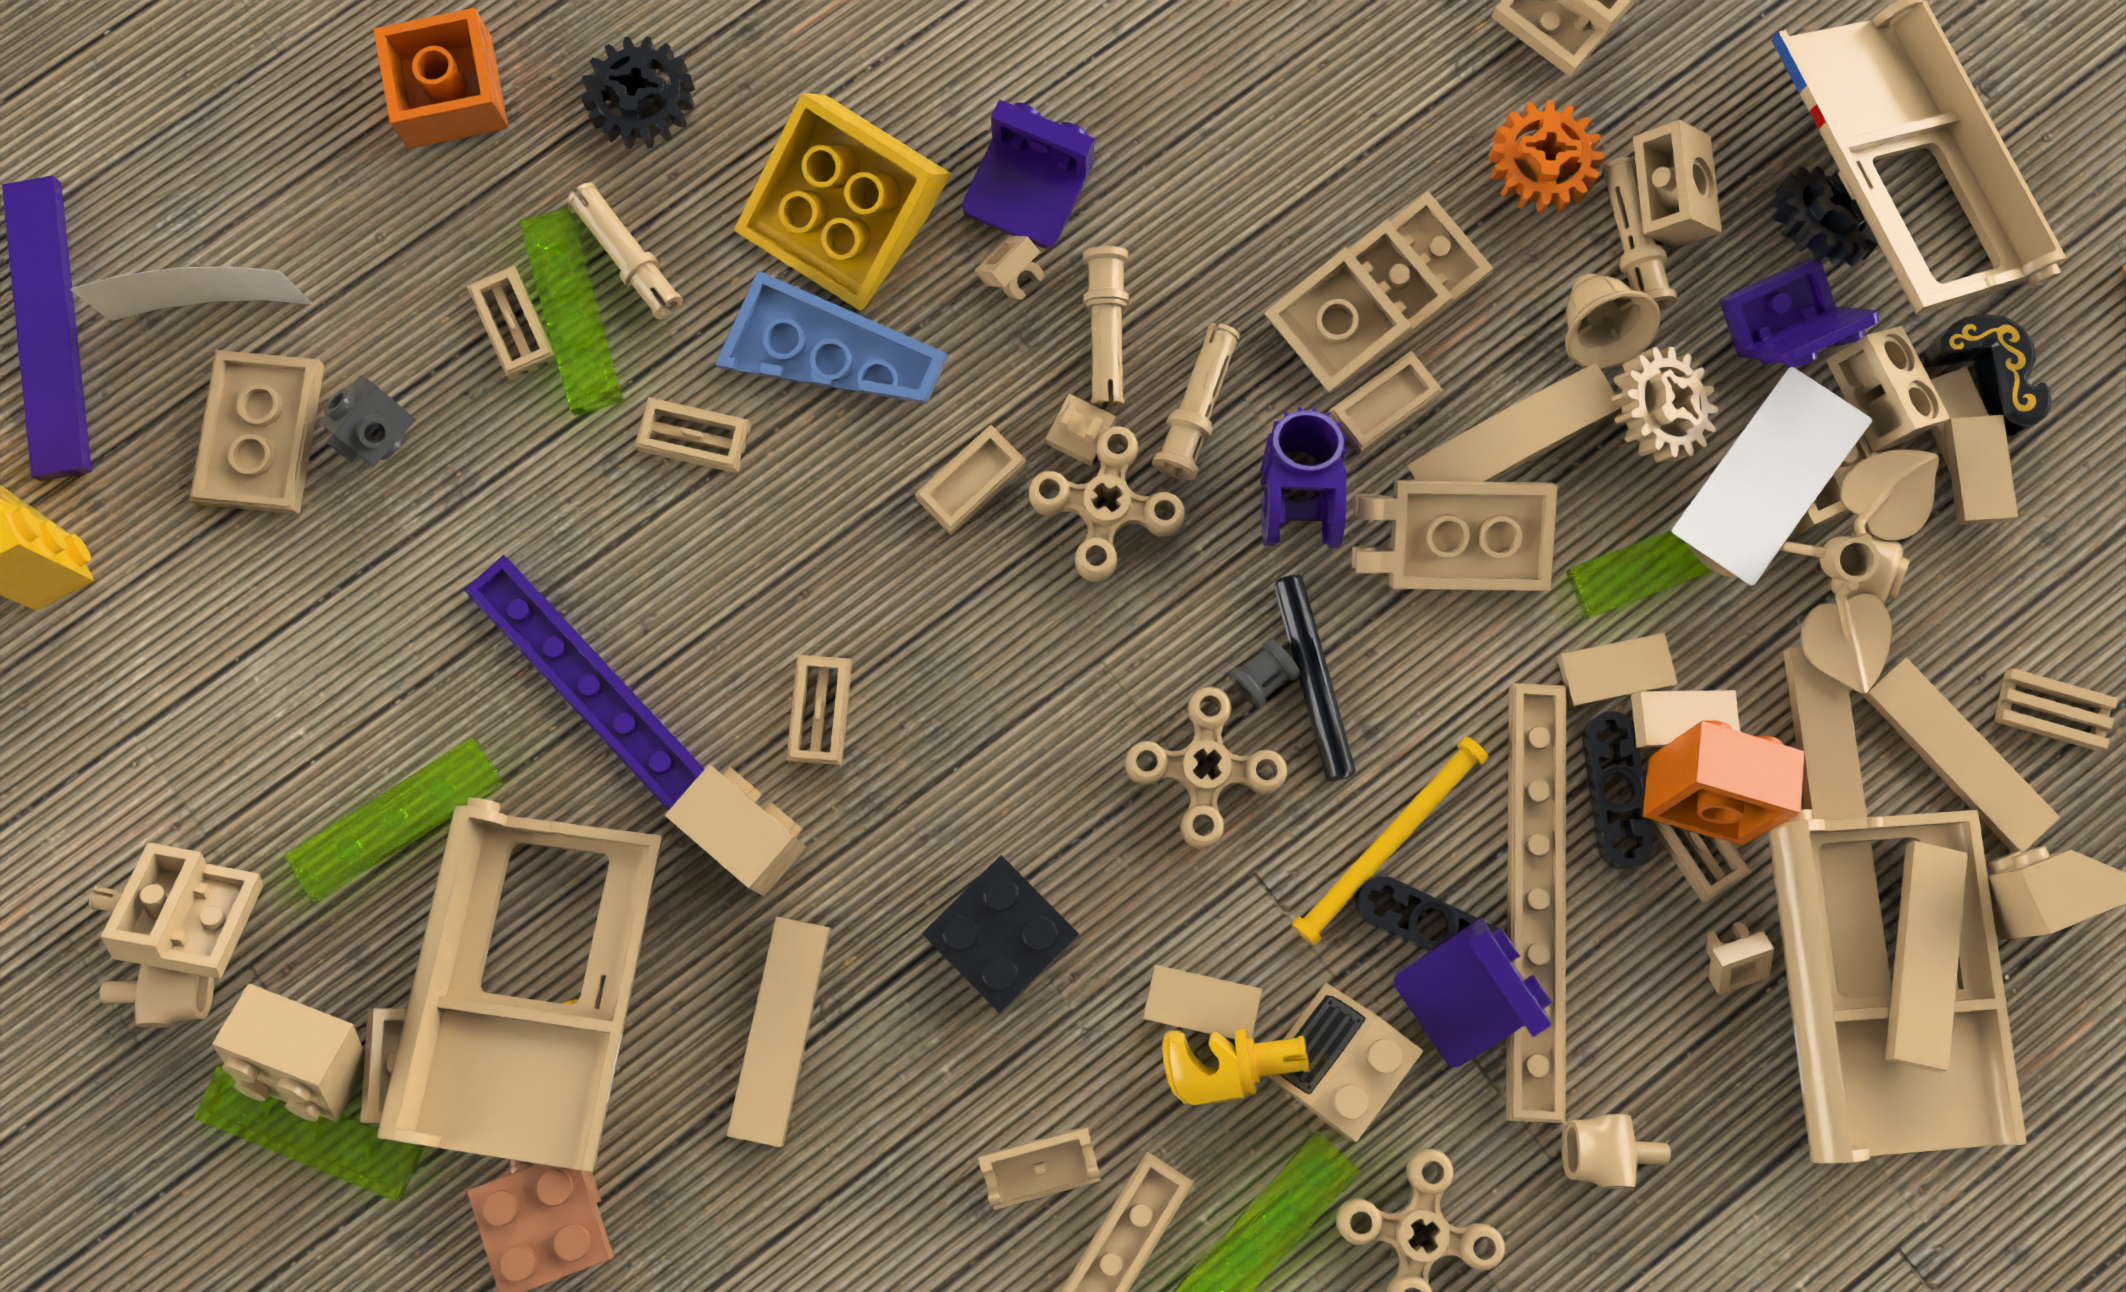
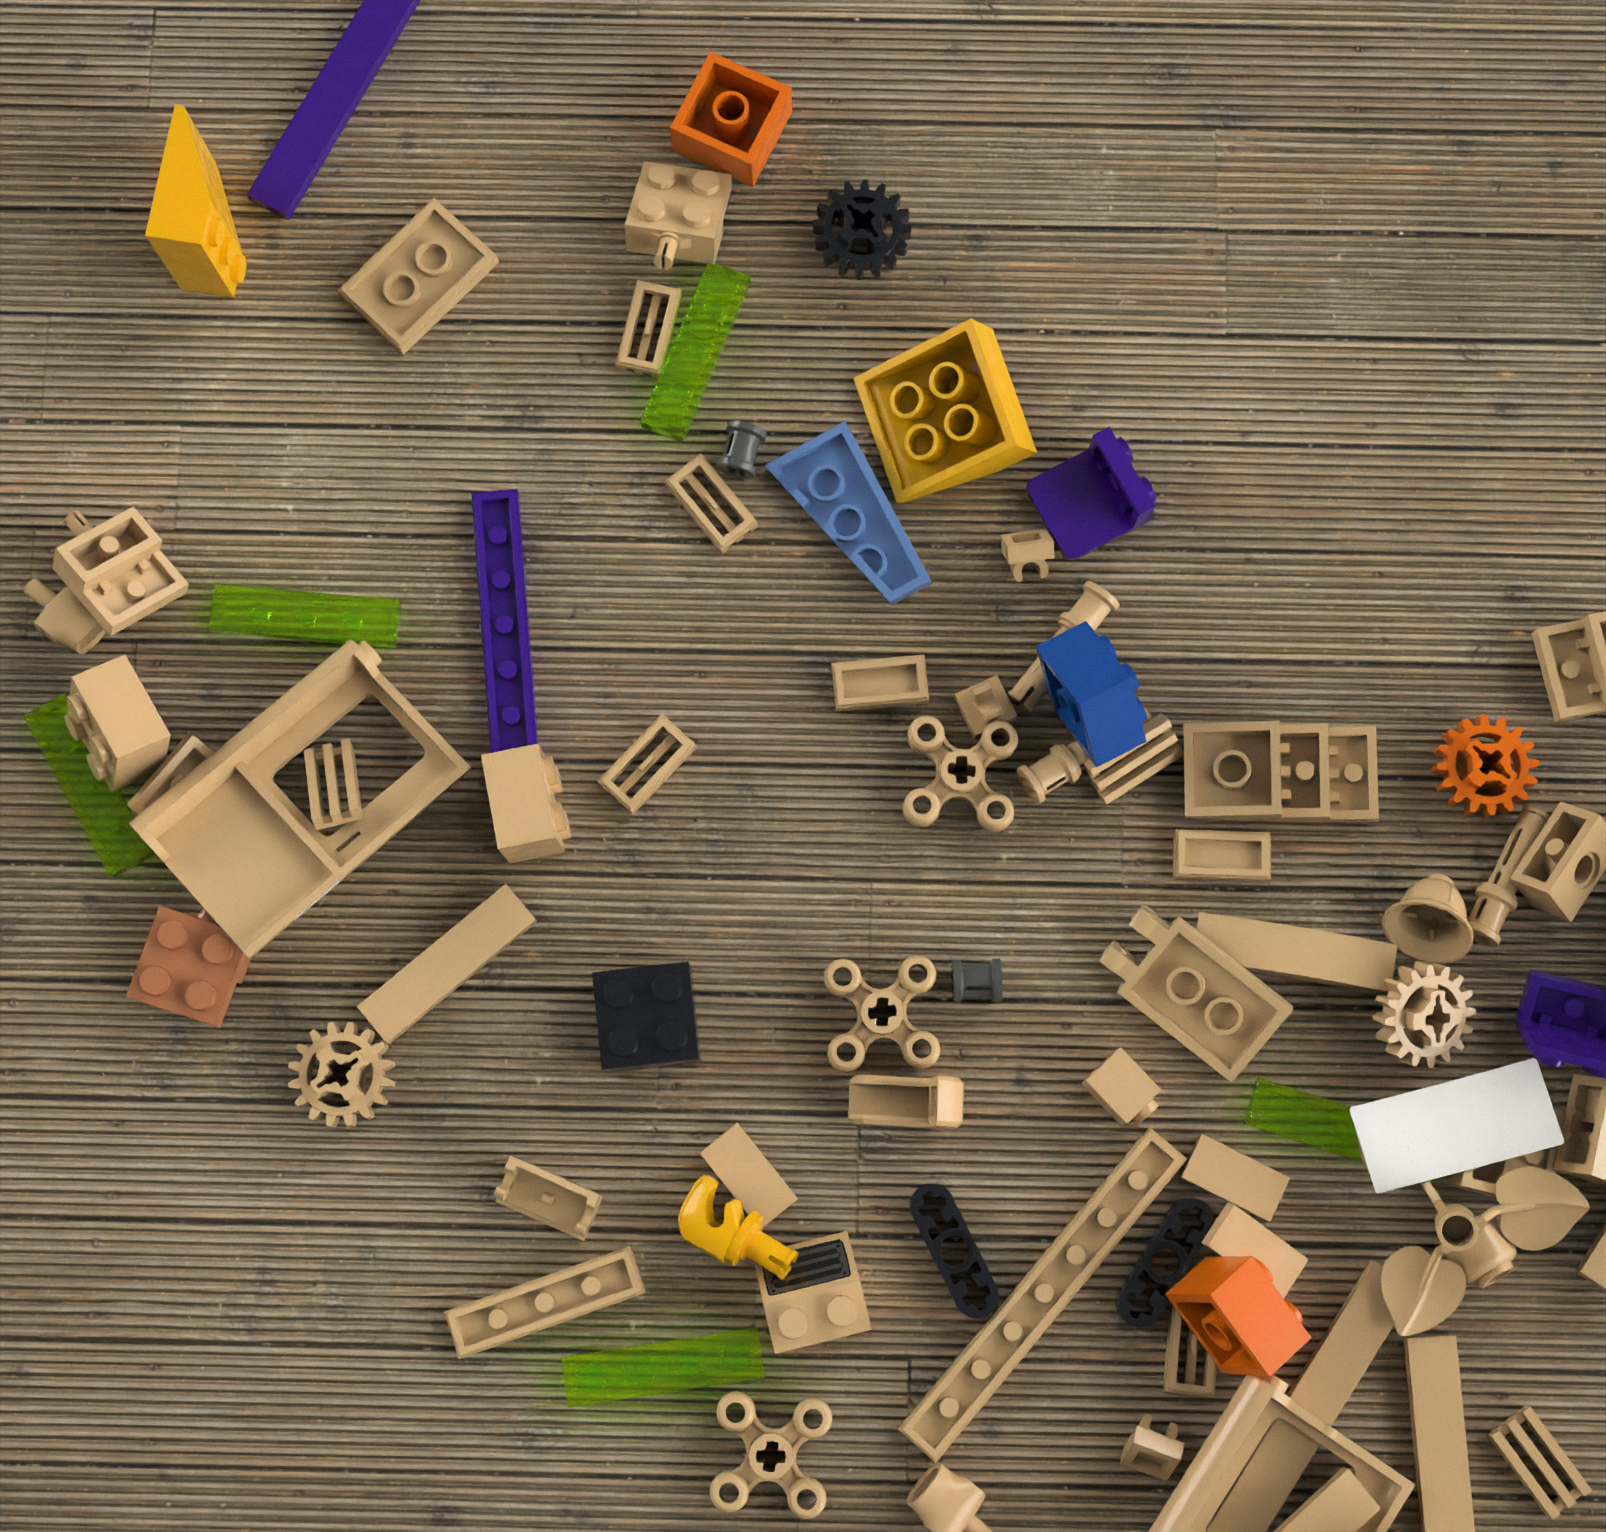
camera: 40 degrees right, 0 degrees up
(174, 287) = (416, 123): white sticker -> none
(365, 422) = (493, 326): dark grey brick -> none
(457, 199) = (677, 213): none -> tan plate
(520, 931) = (328, 758): none -> tan tile
(637, 267) = (764, 353): tan pin -> none
(682, 366) = (741, 449): none -> dark grey bush
(737, 1201) = (330, 1057): none -> tan gear
(1169, 341) = (1093, 693): none -> blue brick
(1251, 380) = (1135, 764): none -> tan tile
(1289, 826) = (906, 1101): none -> tan animal
(1314, 678) = (1010, 1011): black axle -> none
(1322, 439) = (1147, 839): dark purple piece -> none
(1390, 840) = (972, 1167): yellow bar -> none
(1464, 667) = (1123, 1088): none -> tan brick
(1472, 993) = (940, 1319): dark purple bracket -> none

